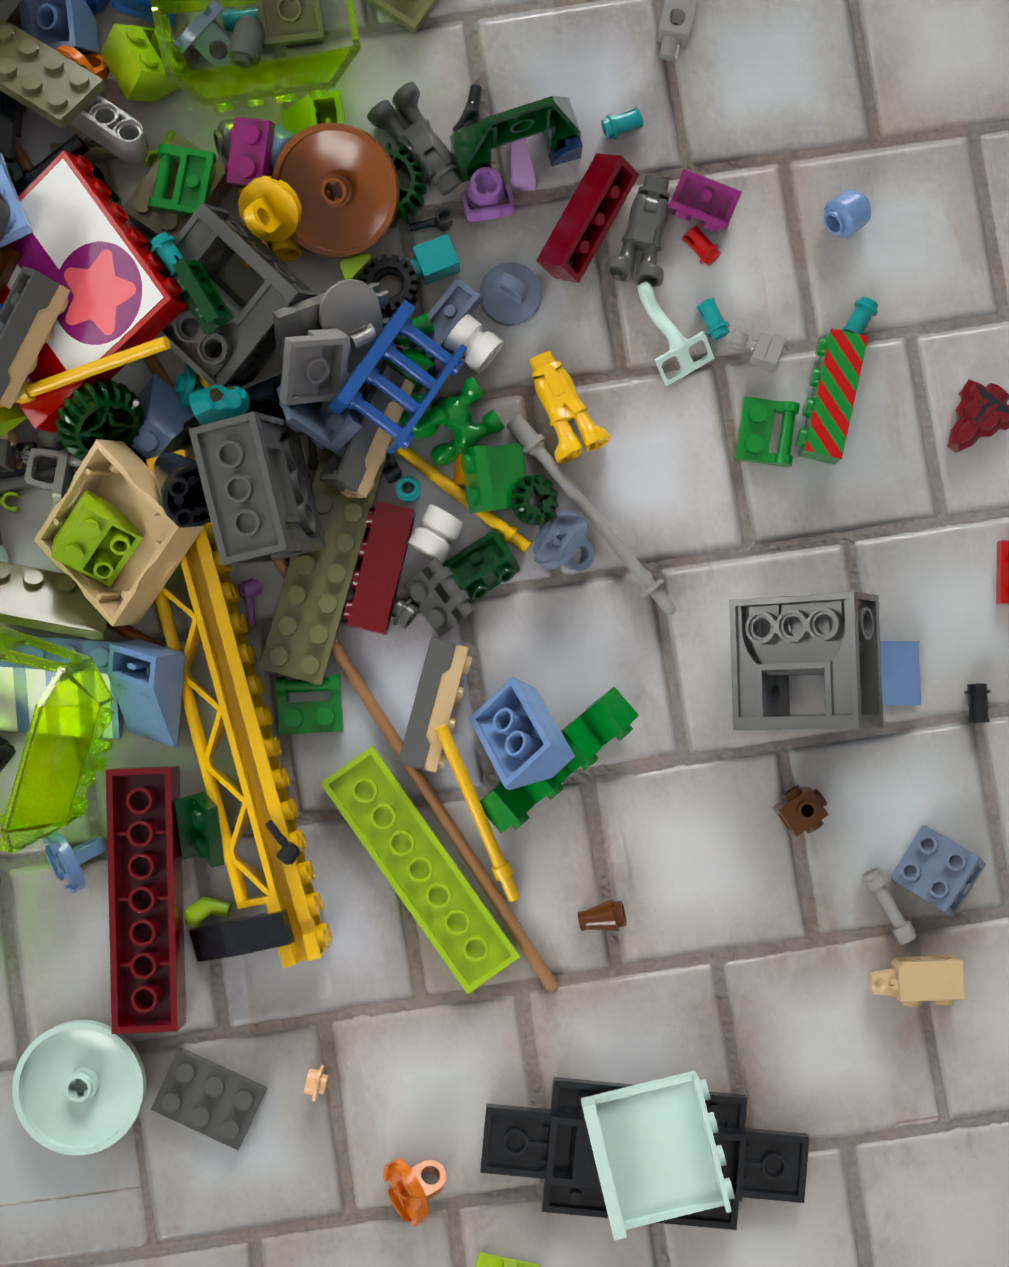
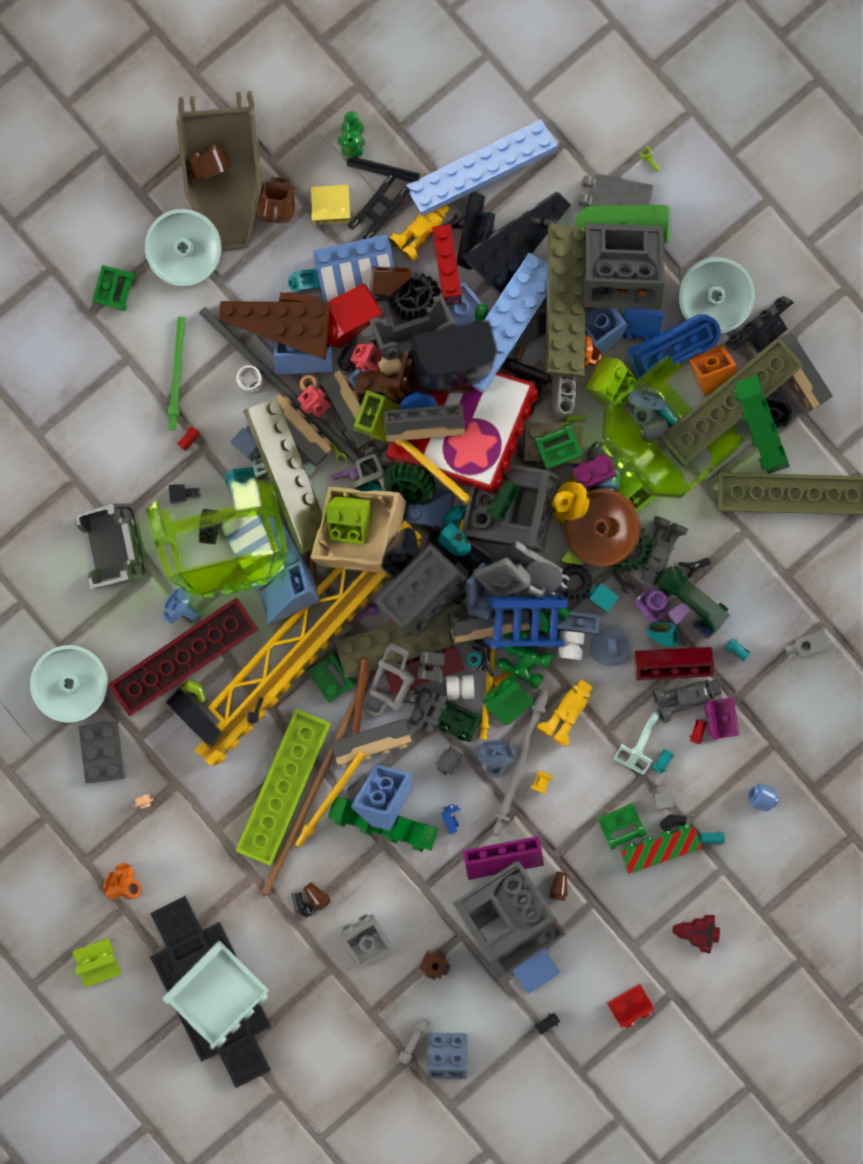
camera: 60 degrees right, 0 degrees up
(40, 498) = (352, 472): none -> medium lavender hand
(166, 250) = (514, 470): teal pin -> none
(198, 828) = (235, 662): dark green bracket -> none
(357, 679) = (360, 695): none -> dark orange bar
(362, 657) = (389, 699): none -> light grey bar
(369, 545) = (431, 659): none -> dark grey wheel
(423, 476) = (485, 663): none -> black bar
(523, 492) = (509, 719): dark green gear -> none
(528, 612) = (448, 760): none -> dark grey brick
(536, 208) = (663, 633): none -> teal rock
(605, 948) = (301, 907): none -> black arm
(616, 663) = (451, 822): none -> blue bracket
(637, 502) = (541, 782): none -> yellow bush
(707, 624) = (494, 858): none -> magenta brick
(707, 887) = (365, 940): none -> light grey plate
(798, 568) = (559, 887): none -> reddish brown cone
(801, 357) = (672, 820): none -> black arm
(921, 979) = (385, 1079): tan hinge -> none

